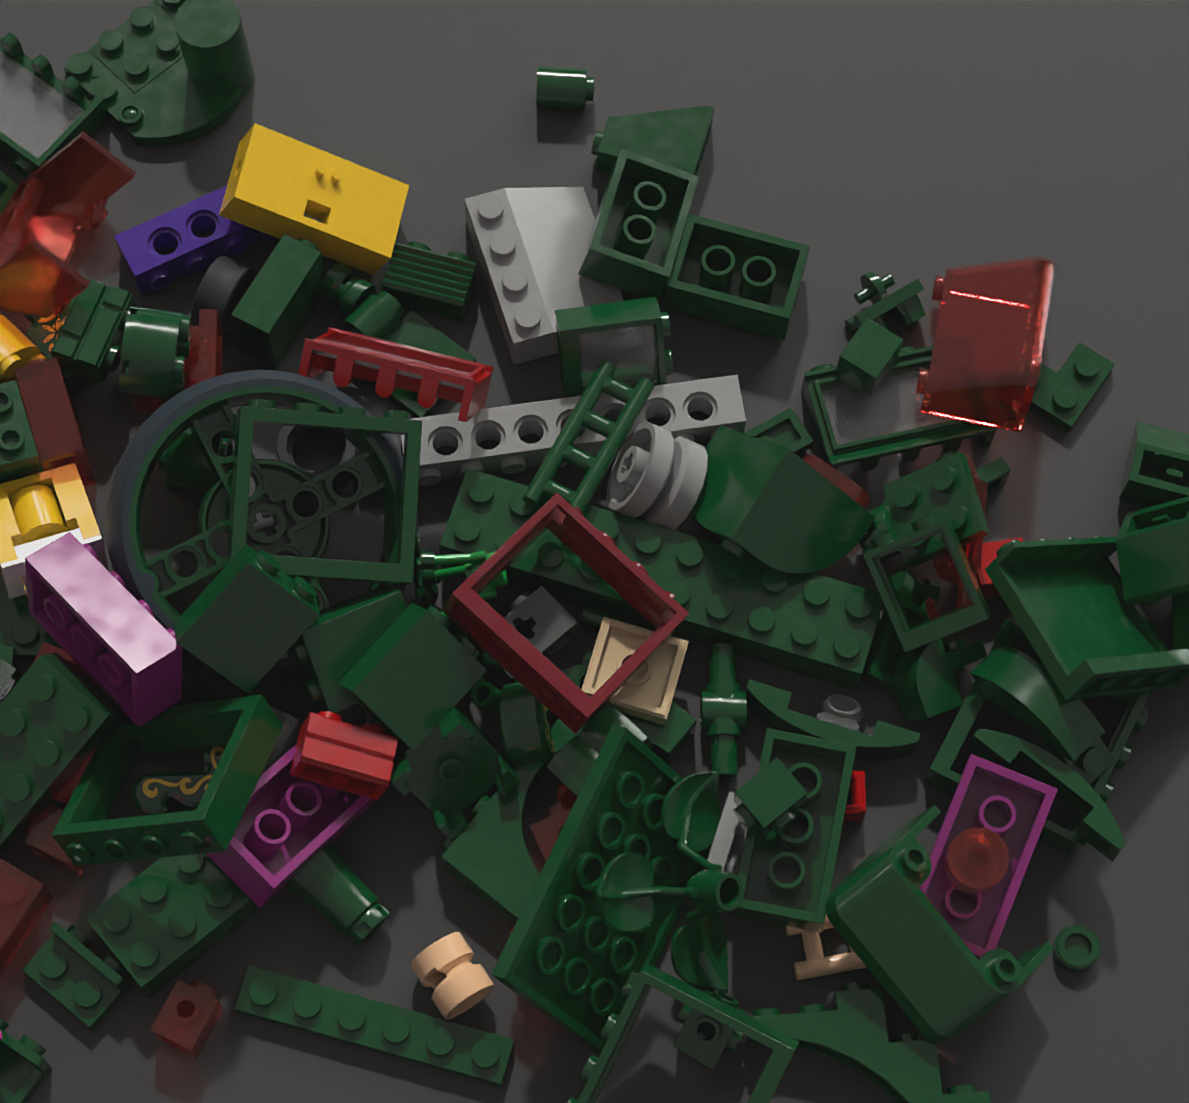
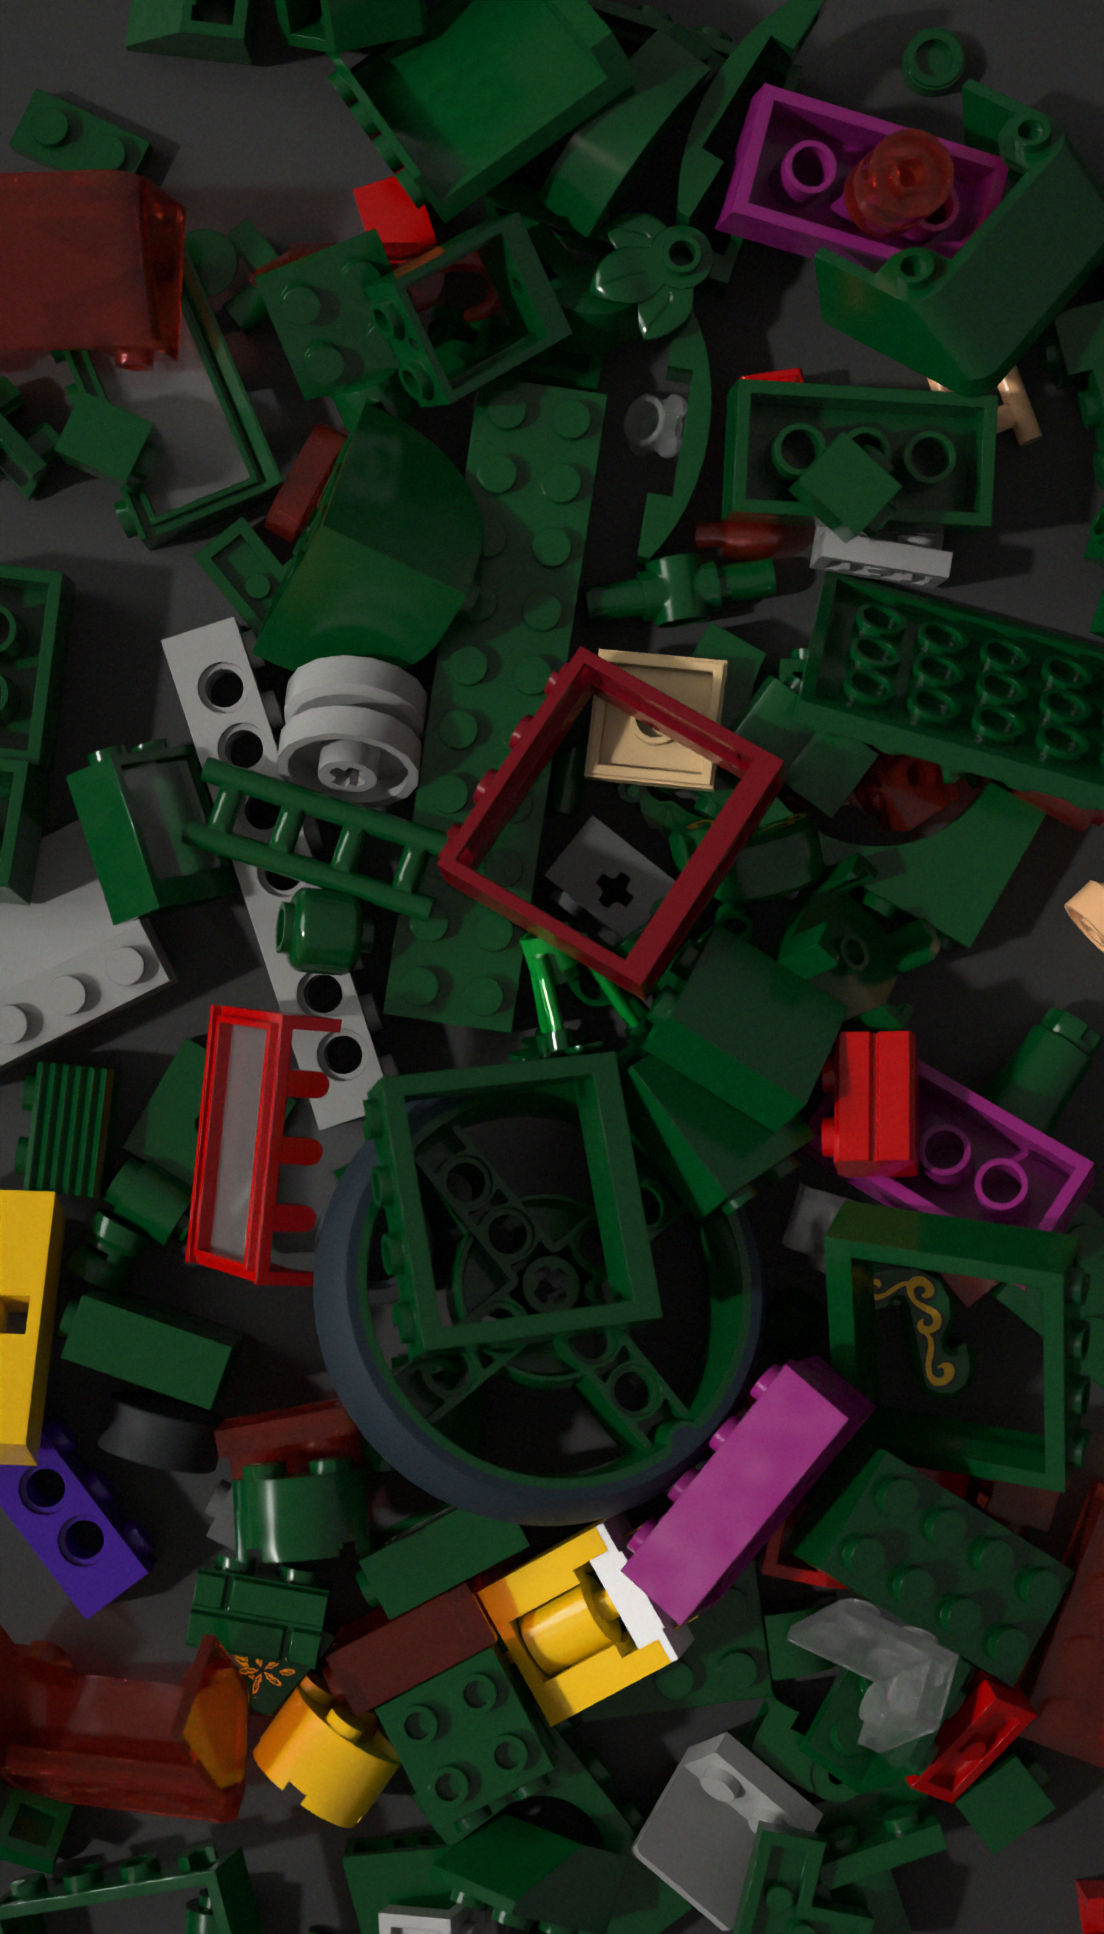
camera: 90 degrees left, 20 degrees up
(103, 436) = (433, 1554): none -> dark green window
(247, 618) = (723, 1279): dark green brick -> none
(527, 434) = (323, 931): none -> dark green head
(626, 889) = (997, 555): dark green plant -> none
(751, 755) = (739, 539): none -> clear red cylinder
(942, 707) = (645, 274): none -> dark green plate
(981, 456) = (212, 258): none -> dark green sticker

